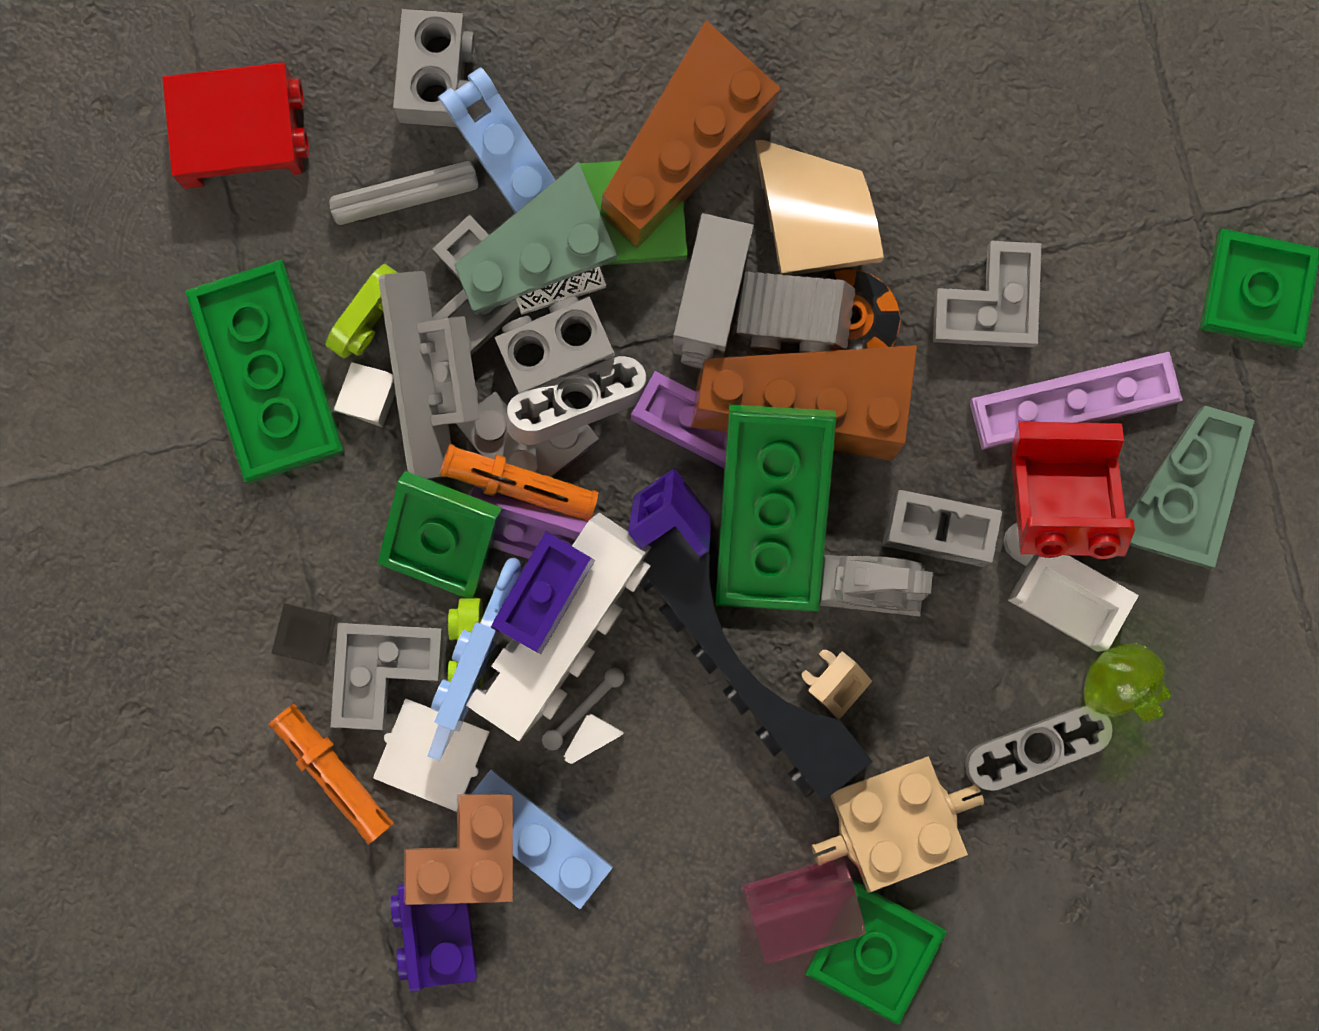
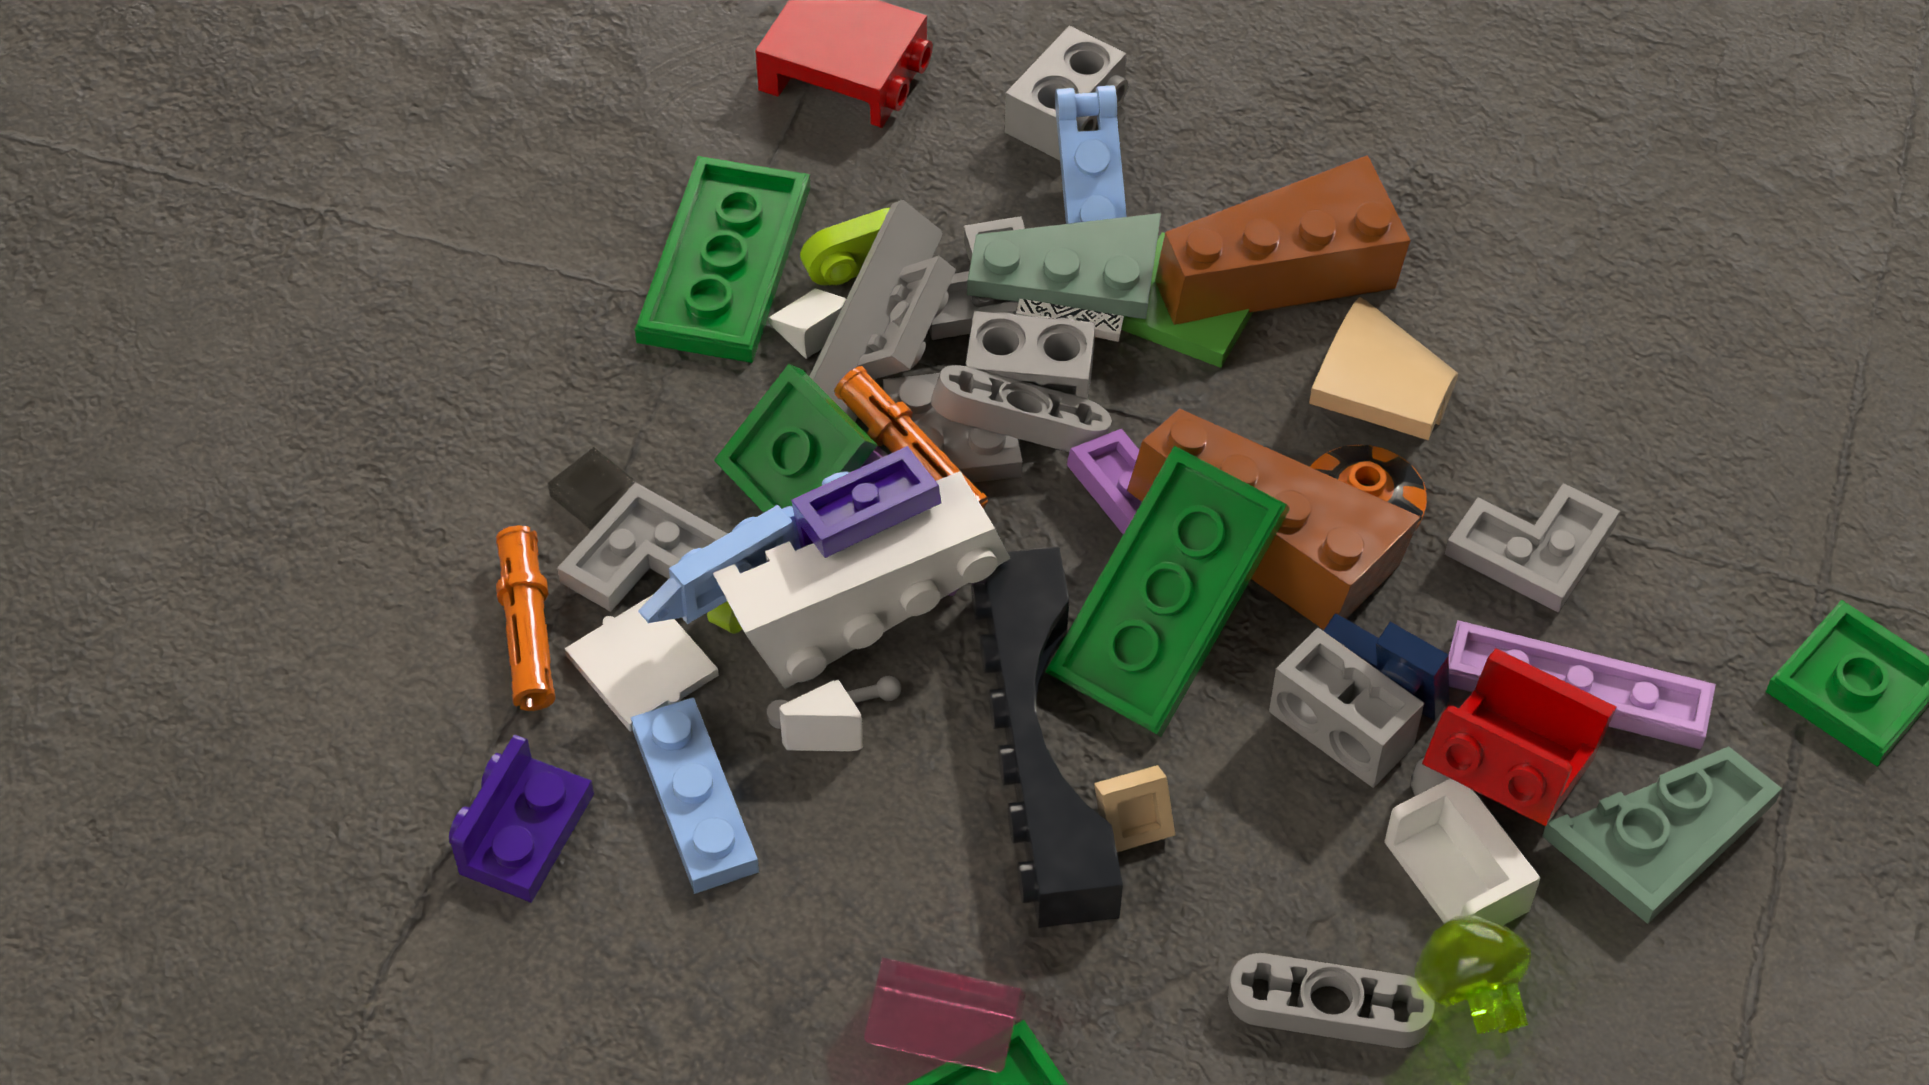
camera: 30 degrees right, 30 degrees down
(403, 192) = (968, 179): light grey axle -> none
(479, 866) = (612, 761): nougat plate -> none
(669, 504) = (1046, 524): dark purple panel -> none
(711, 289) = (1234, 362): light grey window -> none
(795, 312) = (1313, 430): light grey brick -> none
(874, 584) = (1242, 723): light grey piece -> none
(898, 824) = (1113, 987): tan plate -> none
(972, 480) = (1402, 658): none -> dark blue plate

